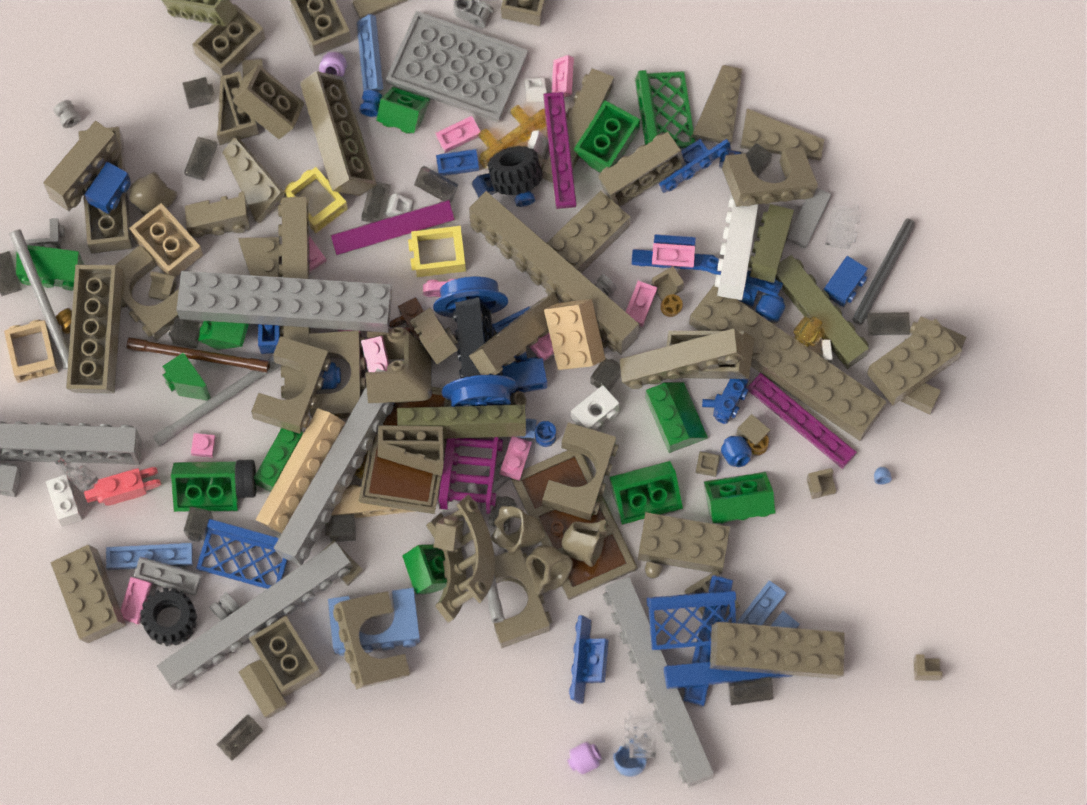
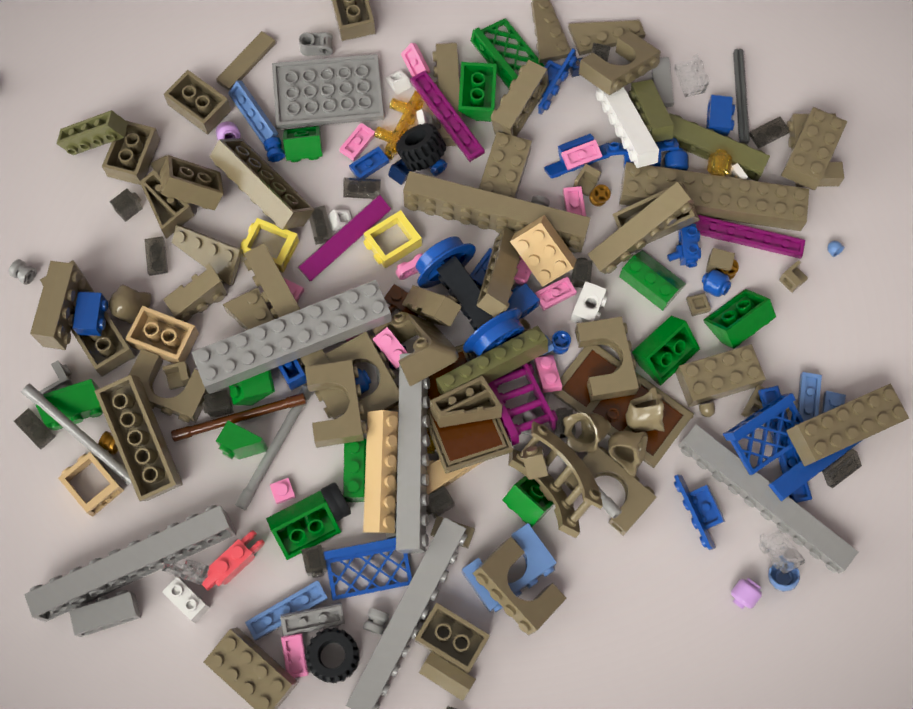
camera: 30 degrees left, 0 degrees up
(568, 383) = (555, 293): none -> bright pink plate

